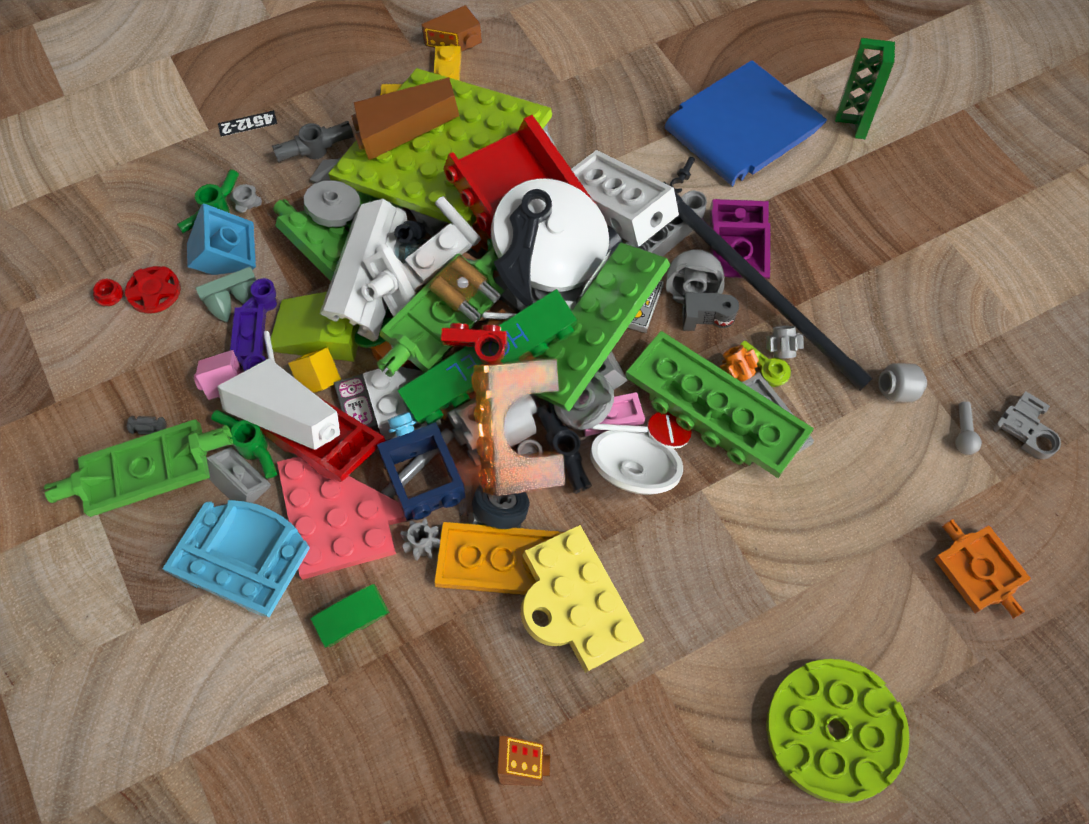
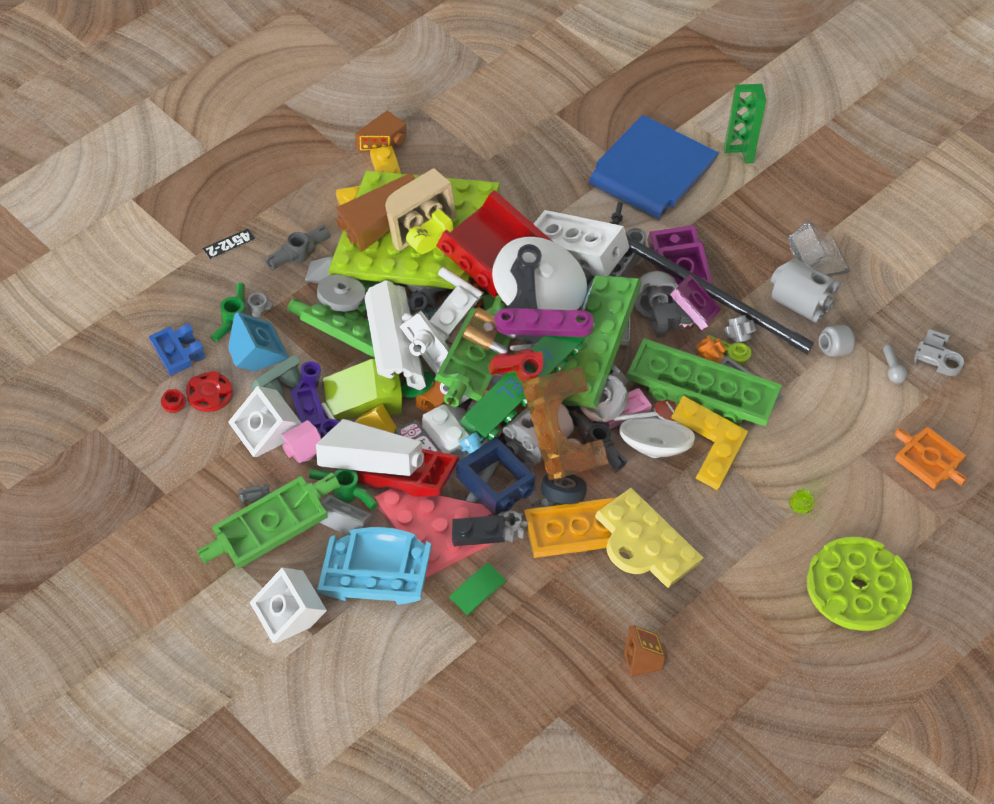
camera: 20 degrees left, 10 degrees down
(121, 580) = (287, 604): none -> white slope
(129, 234) = (171, 352): none -> blue plate
(190, 336) = (263, 420): none -> white slope
(373, 540) = (478, 530): none -> black plate
(434, 154) = (426, 236): none -> neon yellow leg
(438, 121) = (415, 204): none -> tan brick
(528, 292) = (544, 322): none -> magenta plate
(725, 478) = (724, 434): none -> yellow plate
(737, 298) = (695, 301): none -> magenta plate
(795, 591) = (802, 502): none -> clear neon green plate
(878, 308) = (804, 289): none -> light grey cylinder
(909, 263) = (818, 250): none -> clear slope

